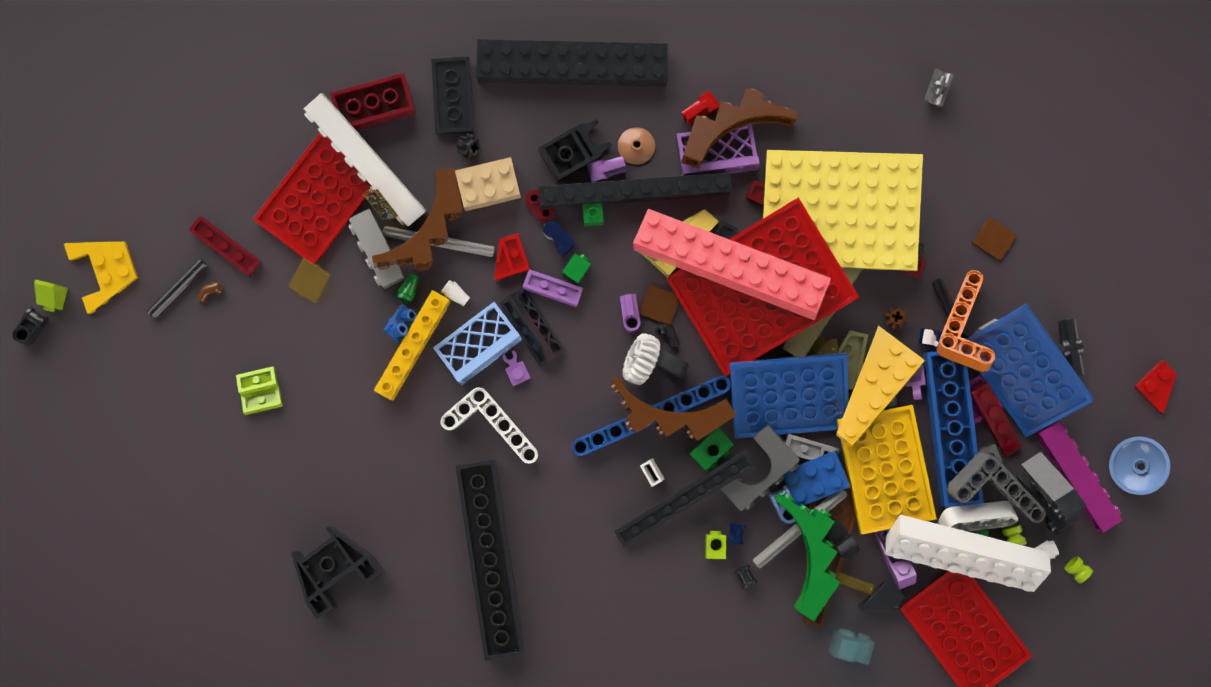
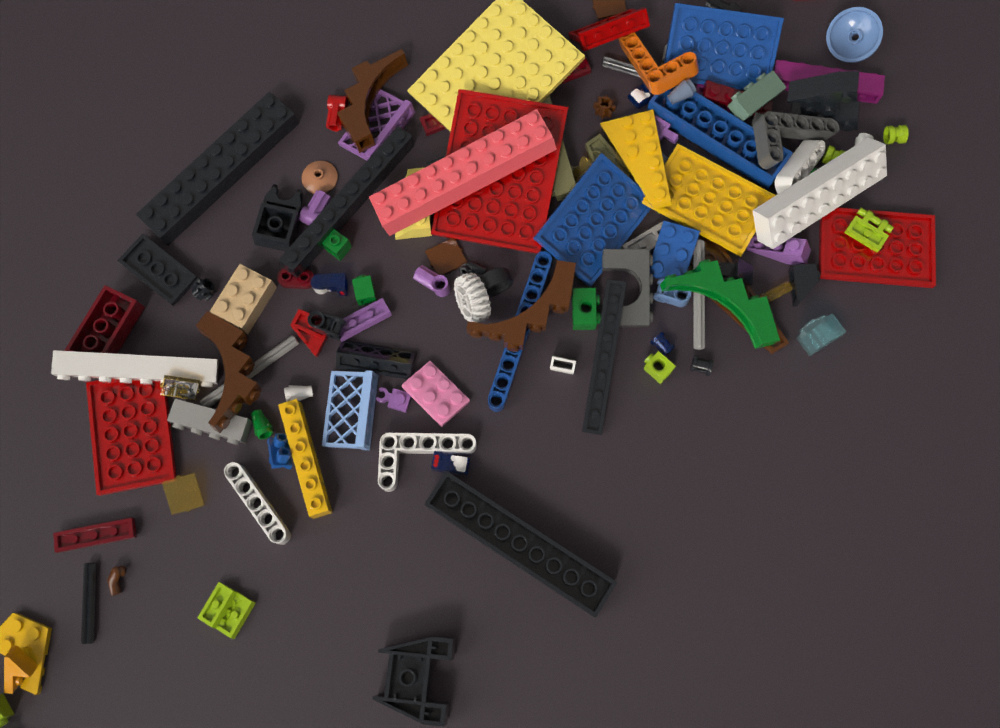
camera: 40 degrees left, 10 degrees down
(93, 285) = (16, 667): none -> light orange slope
(352, 351) = (249, 498): none -> white beam
(504, 455) = (448, 462): none -> clear blue leg
(524, 272) = (330, 325): none -> black piece
(546, 396) = (435, 393): none -> bright pink plate
(958, 373) = (682, 92): none -> sand blue cone
(966, 615) = (866, 233): none -> lime plate
(970, 271) = (611, 28): none -> red fence
(1008, 433) = (756, 95): none -> sand green brick

